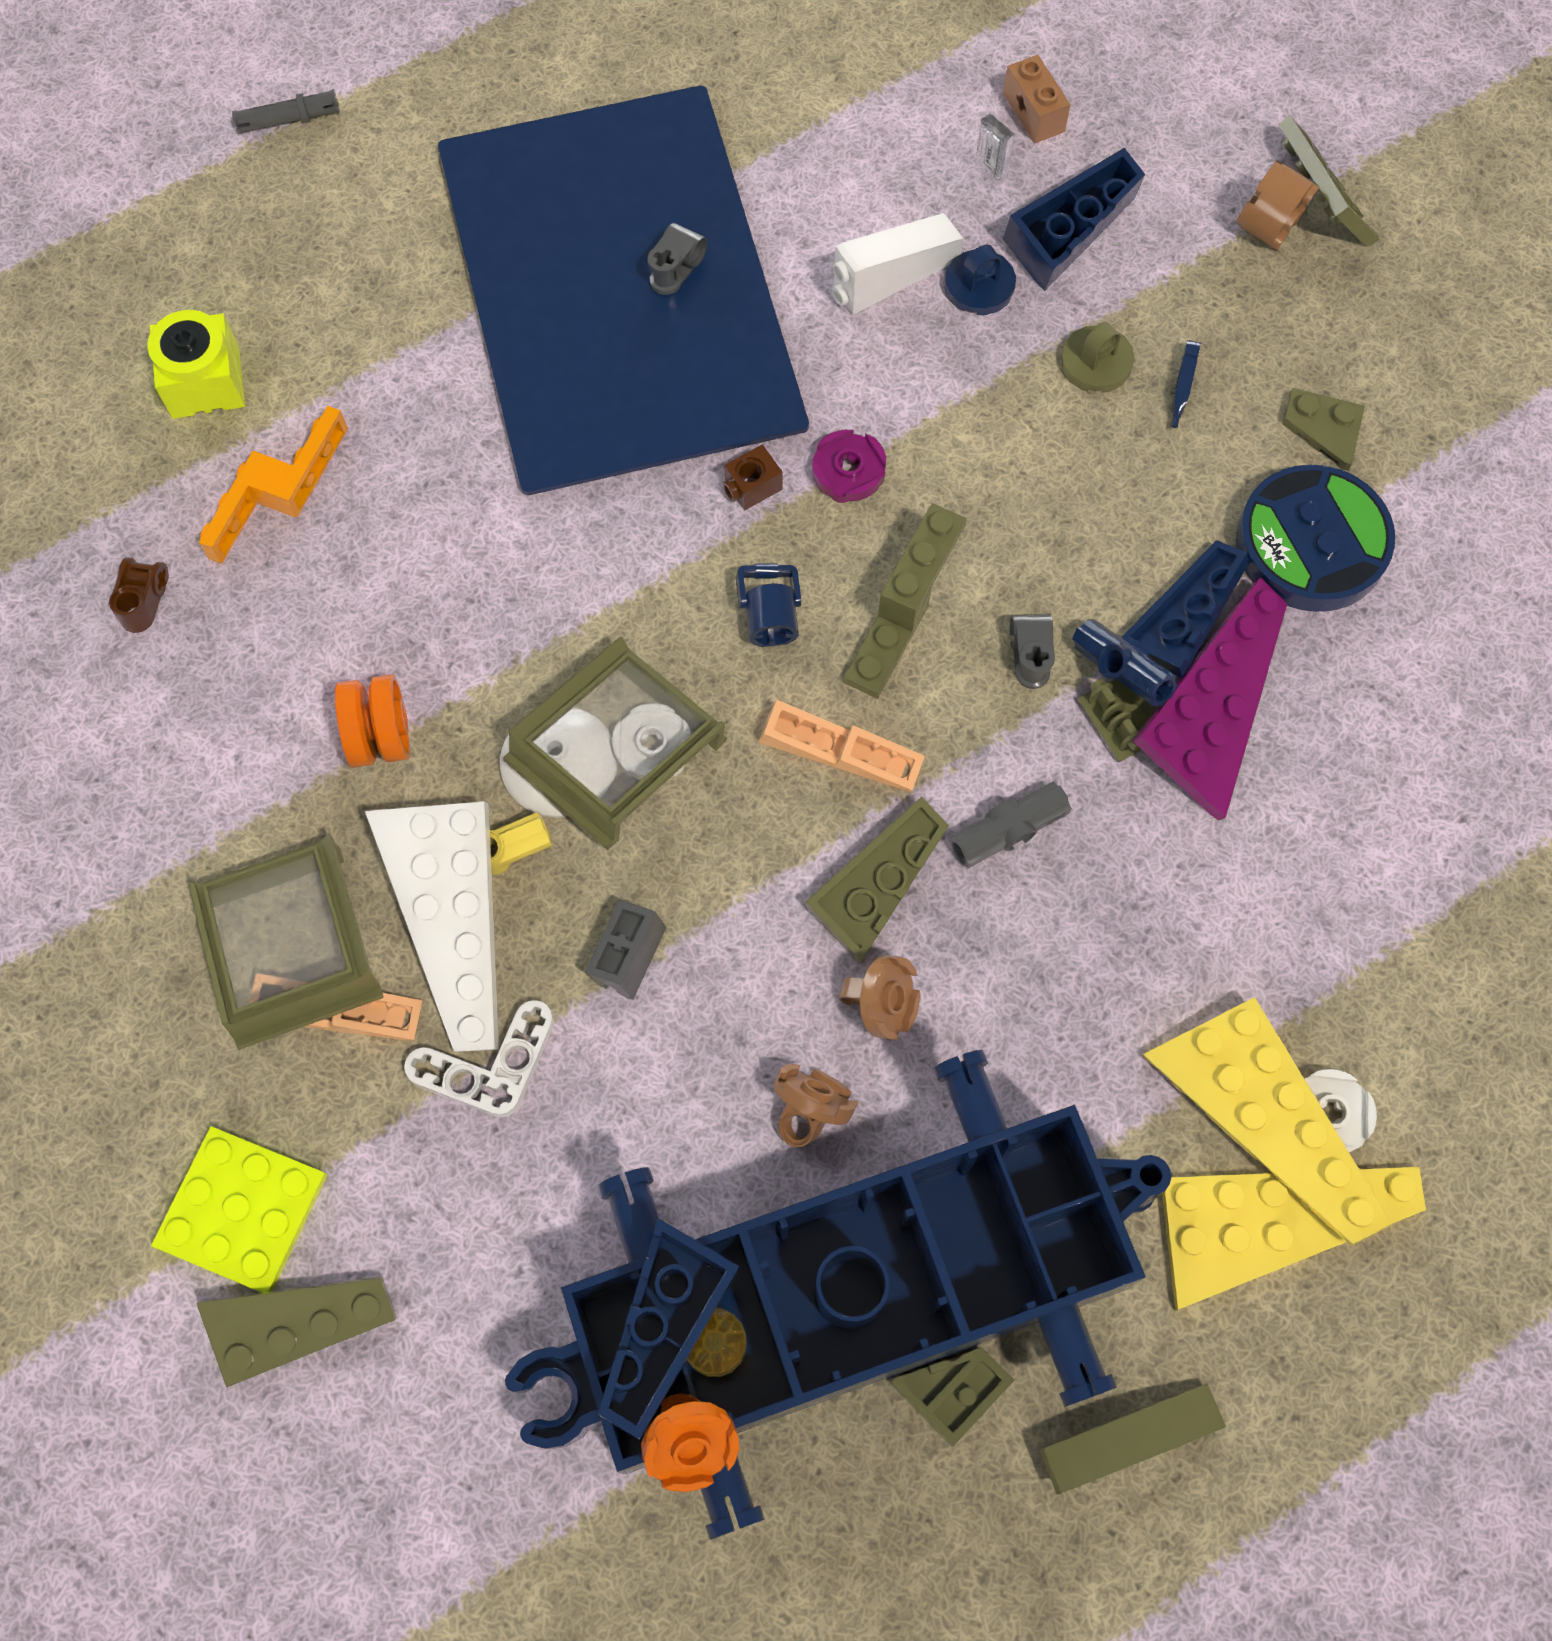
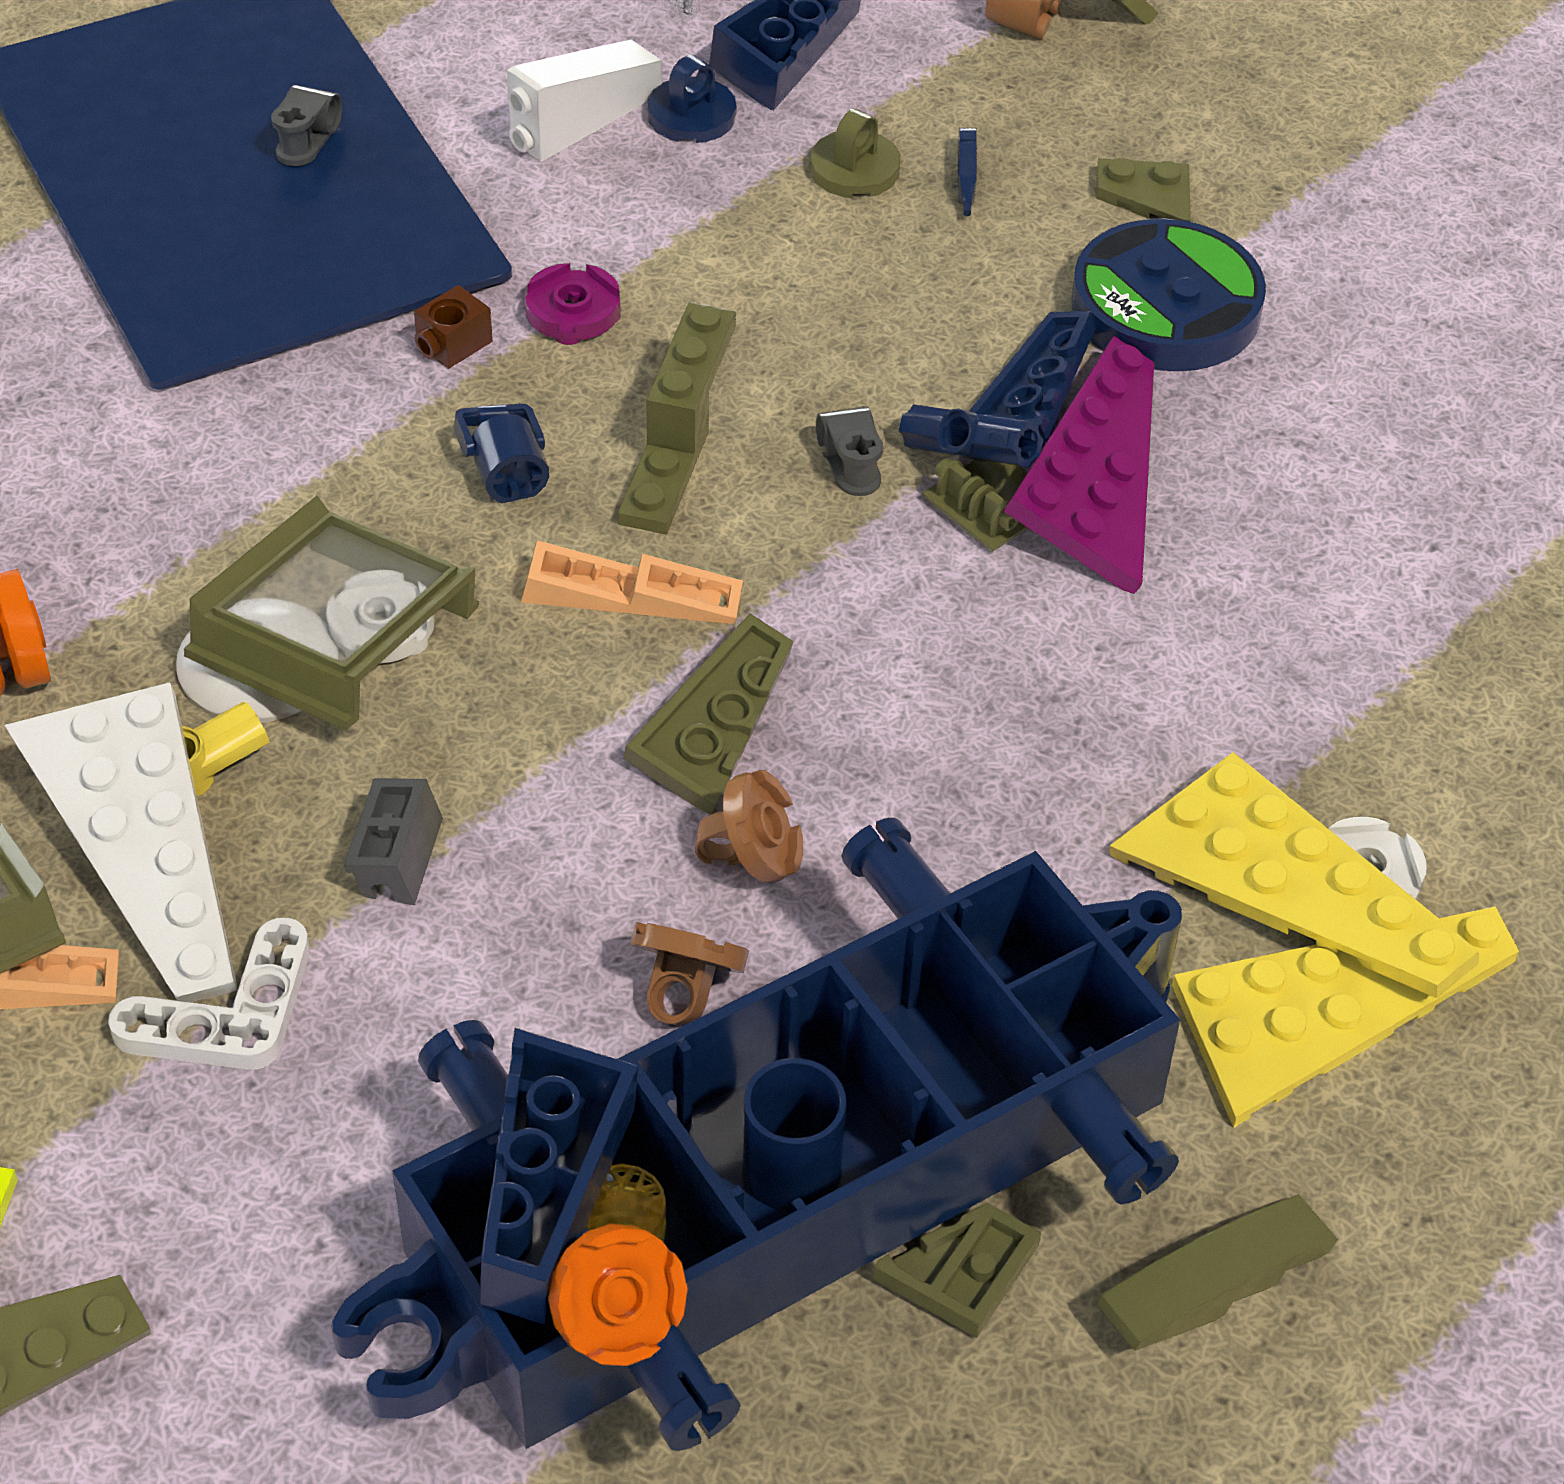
camera: 15 degrees left, 20 degrees down
(1010, 824) = (871, 630): dark grey piece -> none

